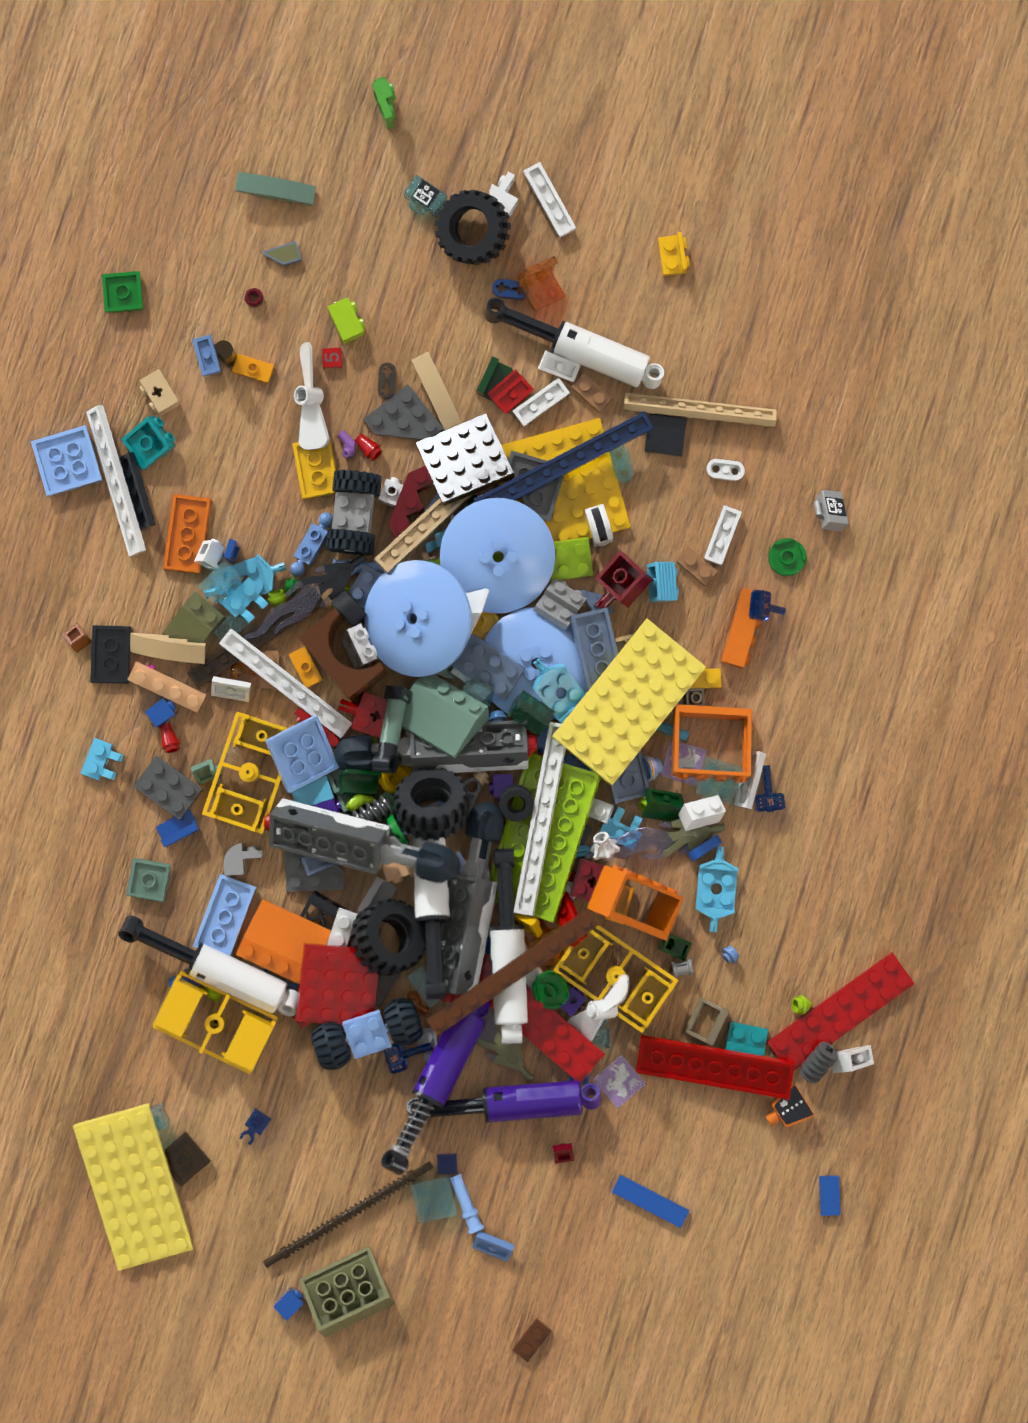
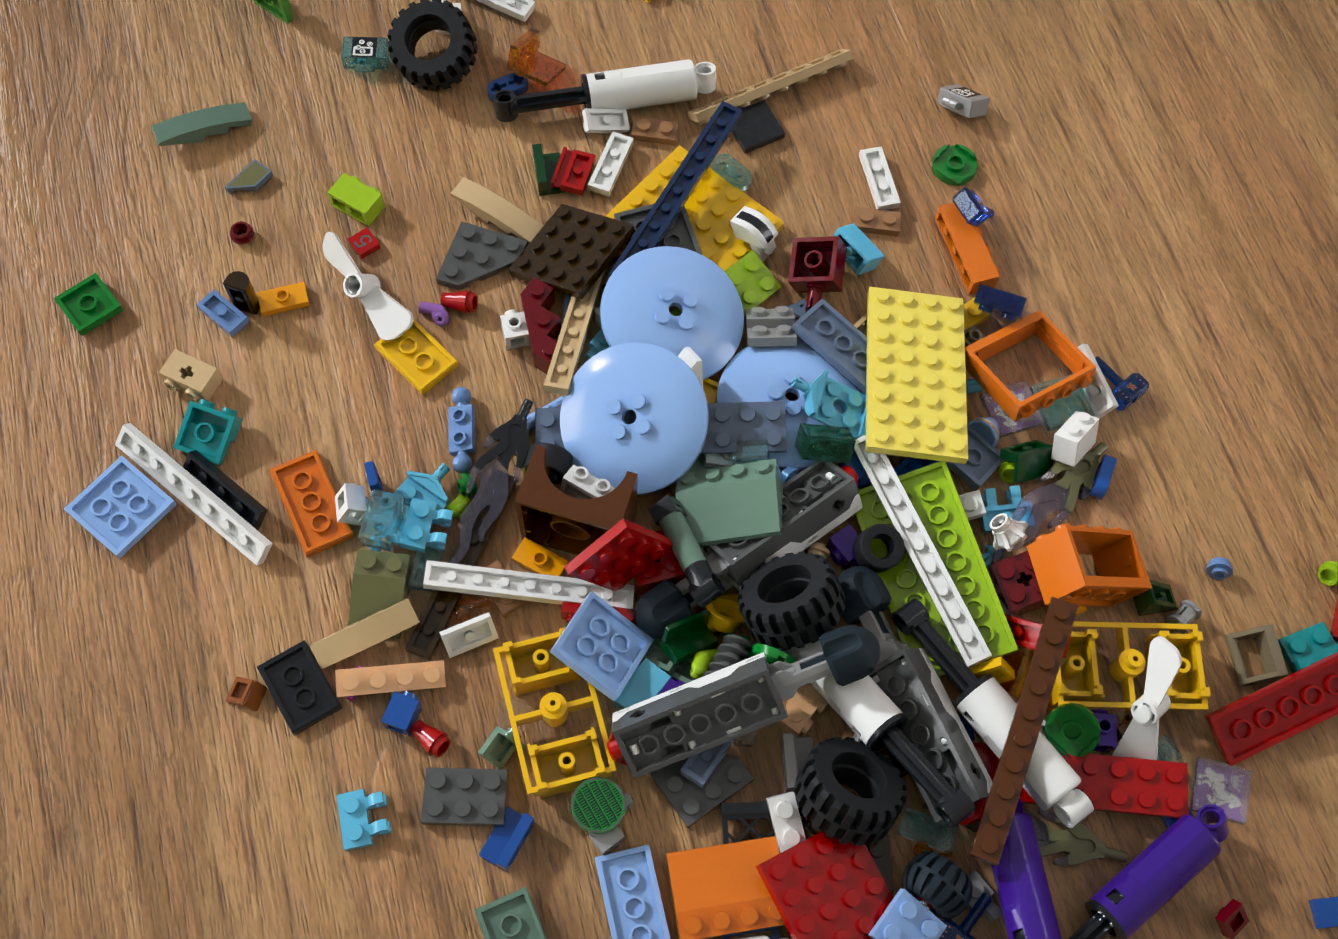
camera: 35 degrees left, 20 degrees down
(238, 847) = (598, 805): none -> tile
(344, 708) = (618, 555): none -> red plate
(353, 512) = (479, 349): plate -> none
(382, 380) = (432, 234): clear smoke beam -> none
(723, 903) = (1142, 491): medium azure plate -> none
(725, 468) = (834, 122): white plate -> none
(728, 687) = (1008, 304): none -> clear blue plate

